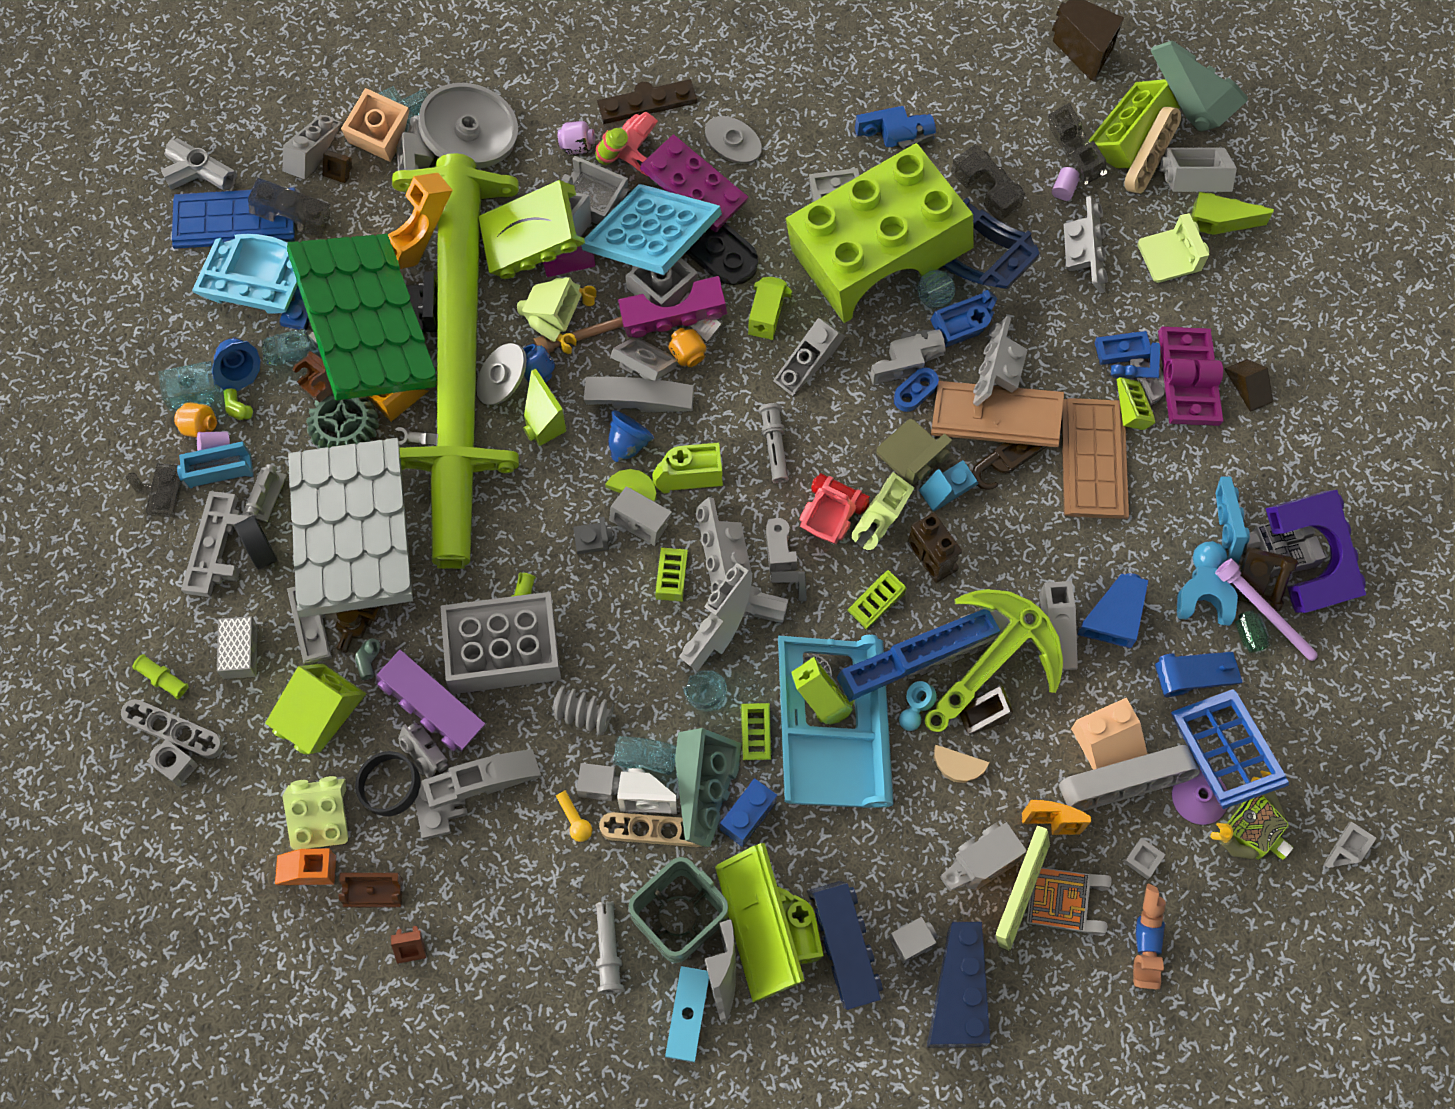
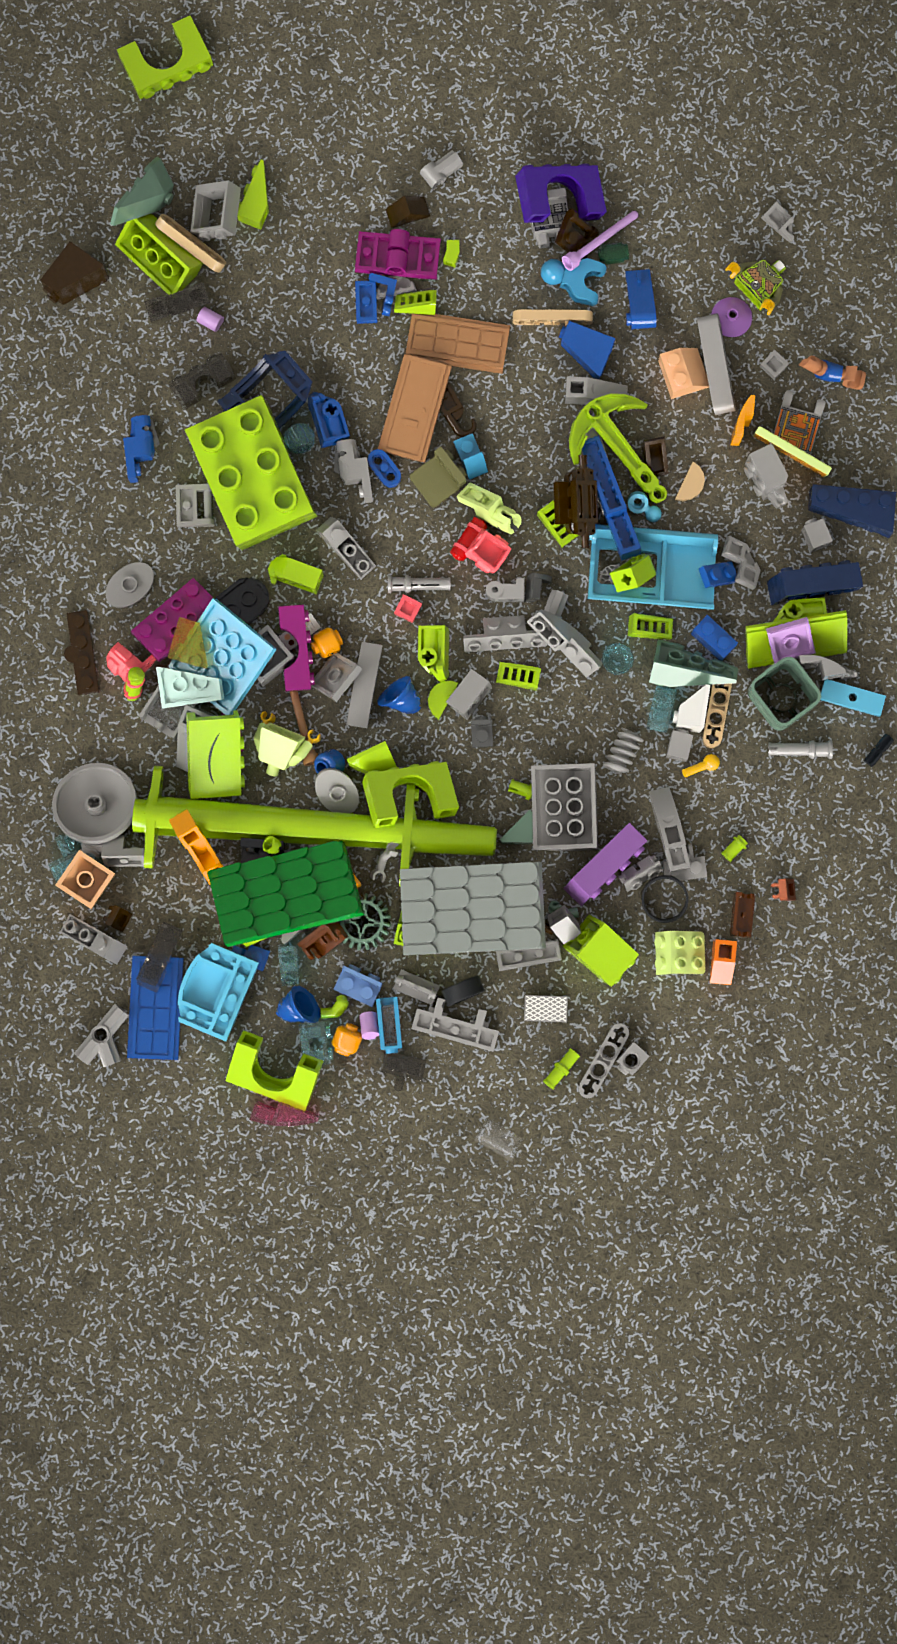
camera: 80 degrees left, 15 degrees up
(72, 612) = (499, 1139): none -> clear slope
(103, 359) = (282, 1115): none -> clear pink slope
(135, 365) = (247, 1073): none -> arch
(265, 427) = (357, 985): none -> medium blue bracket
(346, 656) = (564, 924): none -> light grey brick
(423, 300) = (271, 845): none -> lime hinge
(462, 870) = (734, 848): none -> lime pin
(464, 589) = (521, 832): none -> sand green slope
(508, 416) = (432, 778): none -> lime arch
(576, 137) = (116, 714): lavender head -> none
(610, 195) = (187, 688): none -> light aqua wing
(612, 1058) = (876, 753): none -> black piece
(662, 189) = (188, 644): none -> clear yellow wing
(741, 434) = (408, 608): none -> coral plate
(753, 910) = (791, 639): none -> lavender tile
(836, 808) = (718, 574): none -> blue plate
(872, 839) = (739, 552): none -> light grey tile
(905, 612) = (577, 502): none -> dark brown piece
(935, 547) = (528, 470): dark brown hips -> none
(1002, 363) = (374, 399): light grey bracket -> none
(1084, 244) = (267, 314): light grey bracket -> none
(1150, 565) = (552, 317): none -> tan beam
(1174, 251) = (284, 245): yellowish green bracket -> none
(1208, 438) = (452, 253): none -> lime piece
(1232, 517) = (517, 250): dark azure wing -> none
(1250, 789) = (742, 280): blue piece -> none
(1308, 409) = (438, 171): none -> light grey piece
(1378, 132) = (149, 80): none -> lime arch

